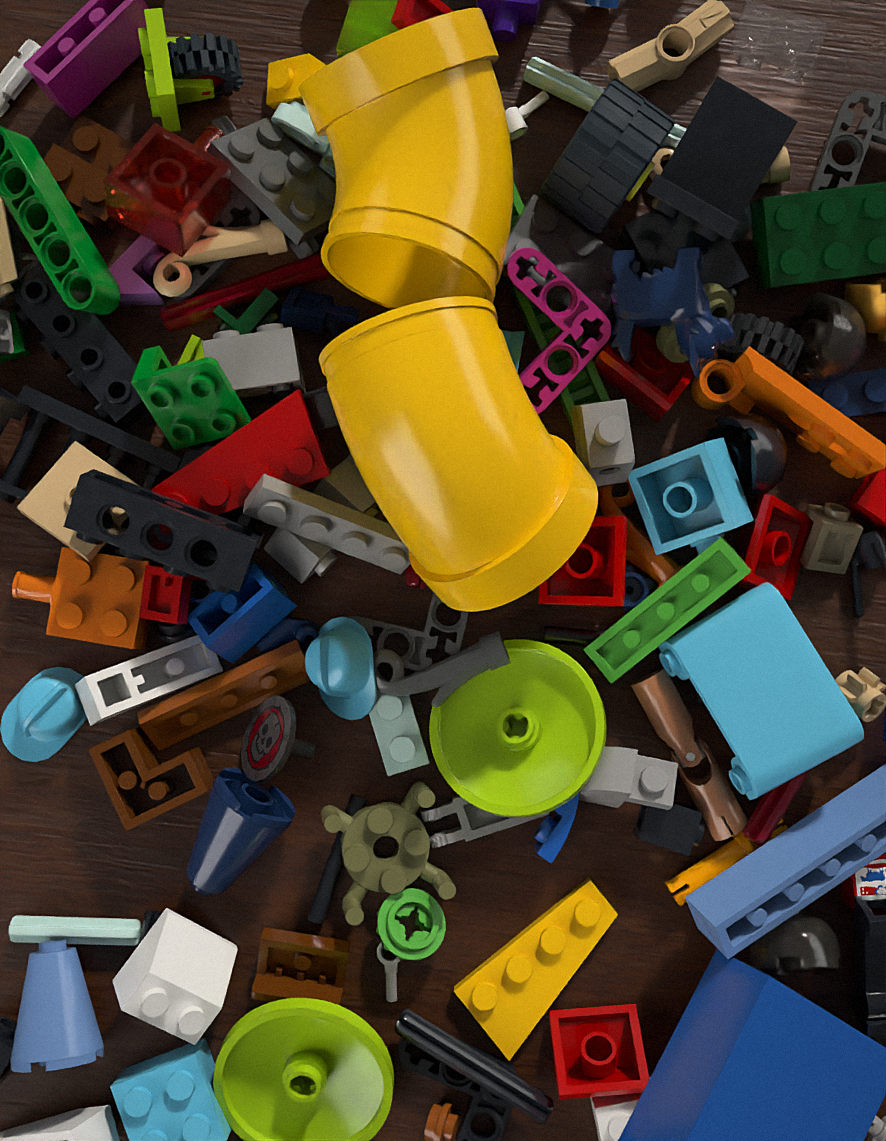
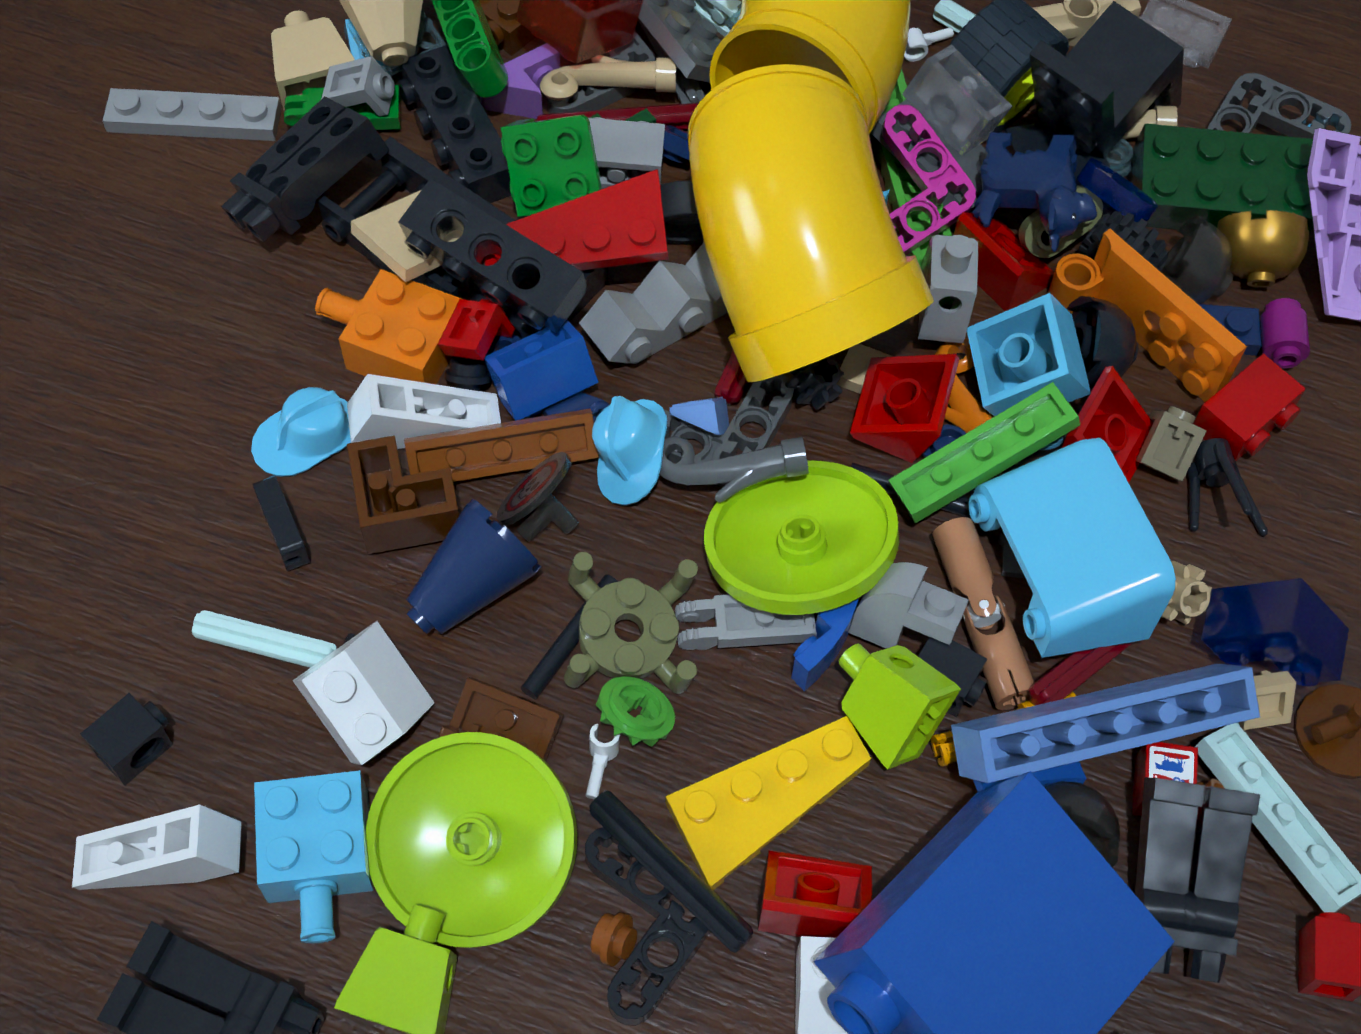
camera: 10 degrees right, 25 degrees down
(51, 816) = (281, 523): none -> black piece
(55, 1013) = (217, 706): medium blue cone -> none
(326, 523) = (657, 303): light grey plate -> none
(398, 733) = (669, 525): light aqua plate -> none
(400, 615) = (706, 414): none -> medium blue slope
(574, 223) = (956, 99): none -> clear brick
(630, 869) = (895, 701): none -> lime torso
(747, 286) = (1116, 190): none -> clear blue beam

